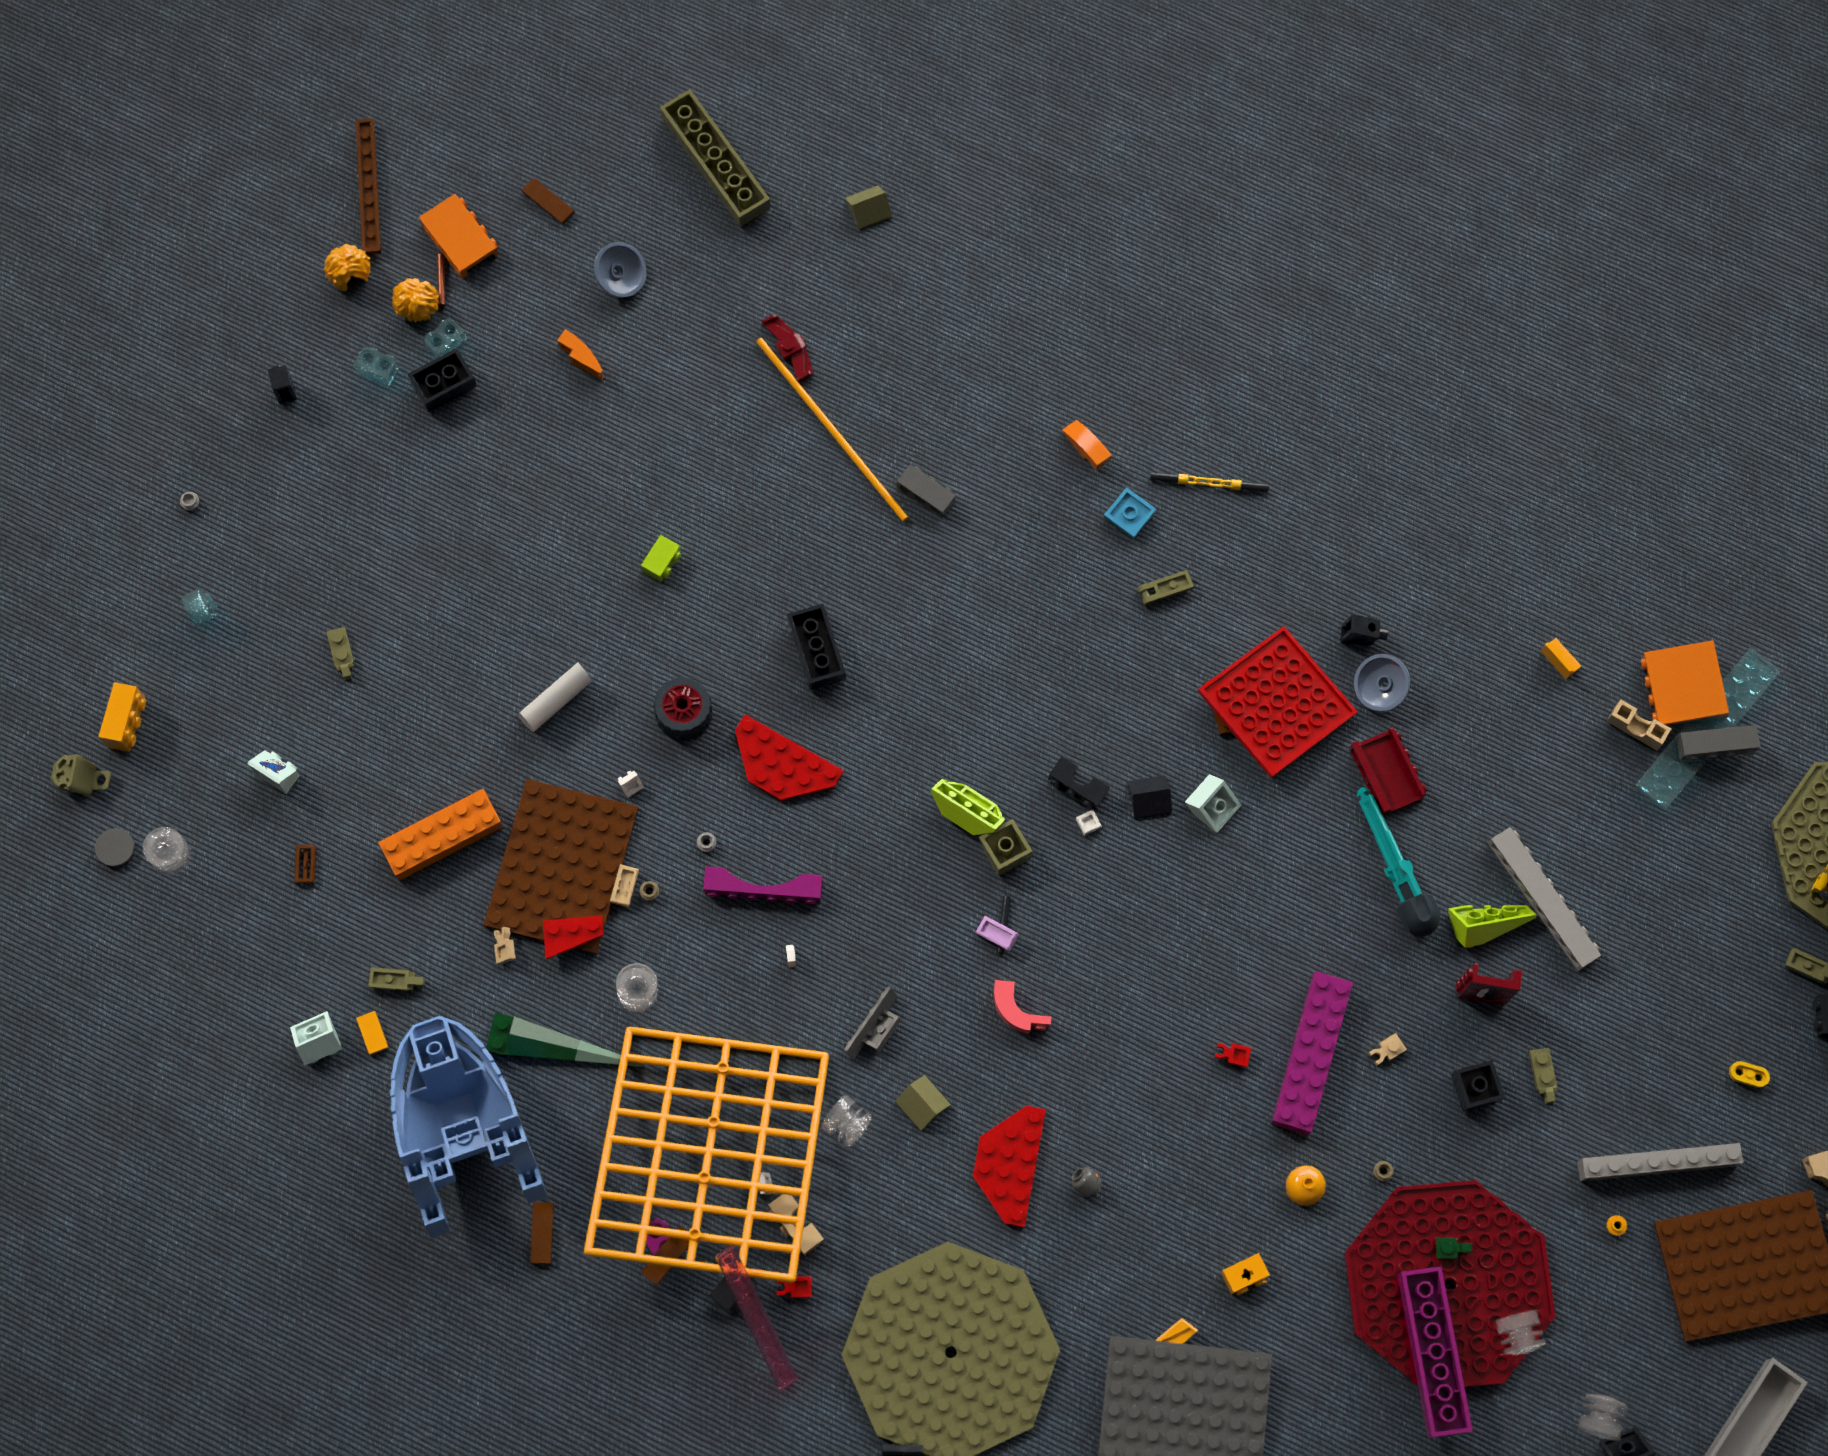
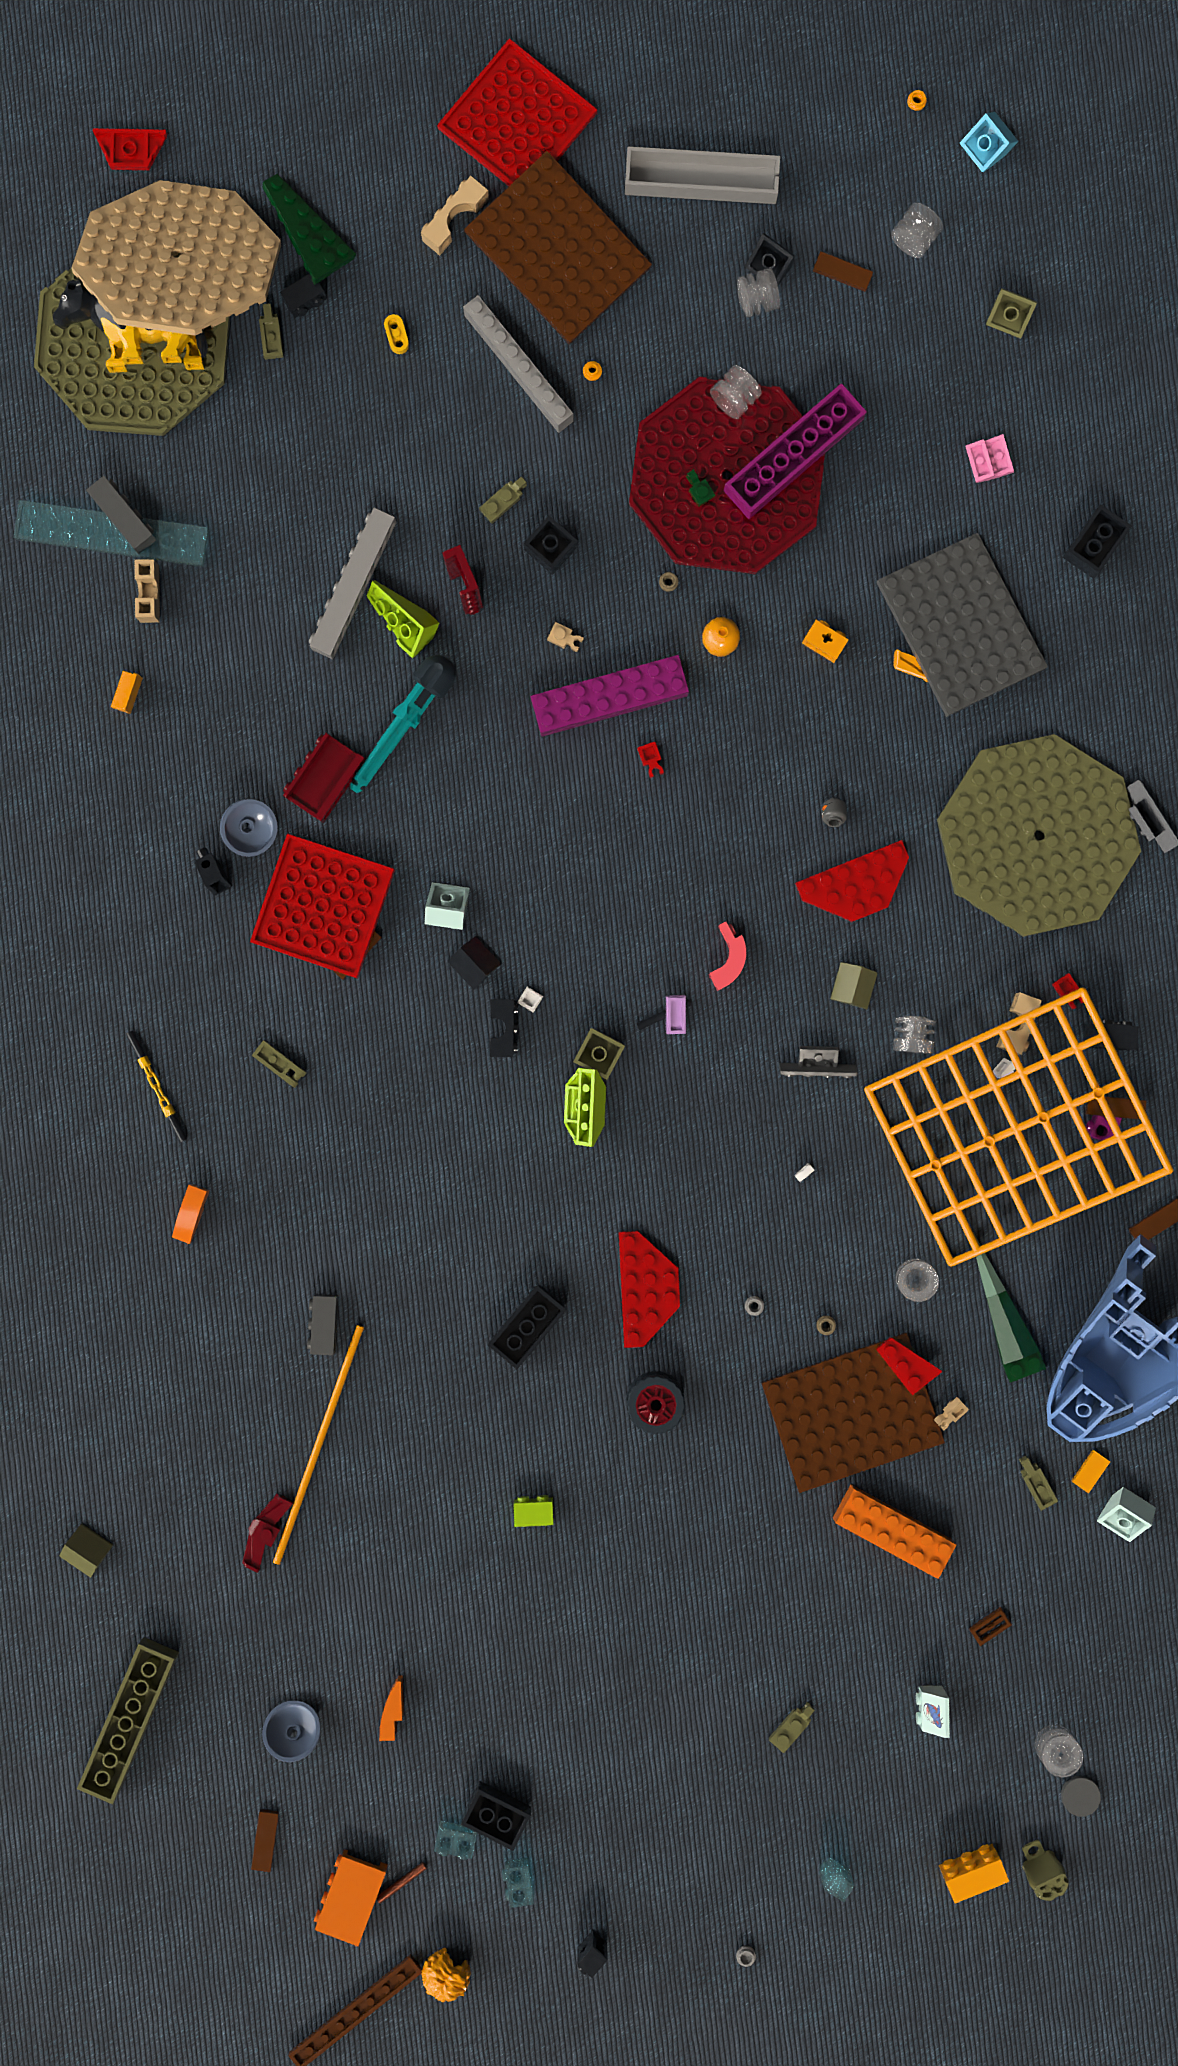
camera: 120 degrees left, 15 degrees up
(415, 300) = (438, 1892): light orange hair -> none
(555, 697) = (716, 1517): white brick -> none
(624, 885) = (836, 1348): tan plate -> none
(630, 784) = (747, 1403): white tile -> none
(756, 1317) = (1126, 1002): clear pink plate -> none
(803, 888) = (780, 1269): magenta arch -> none
(1129, 513) = (230, 1136): dark azure plate -> none
(1685, 683) = (84, 572): orange panel -> none

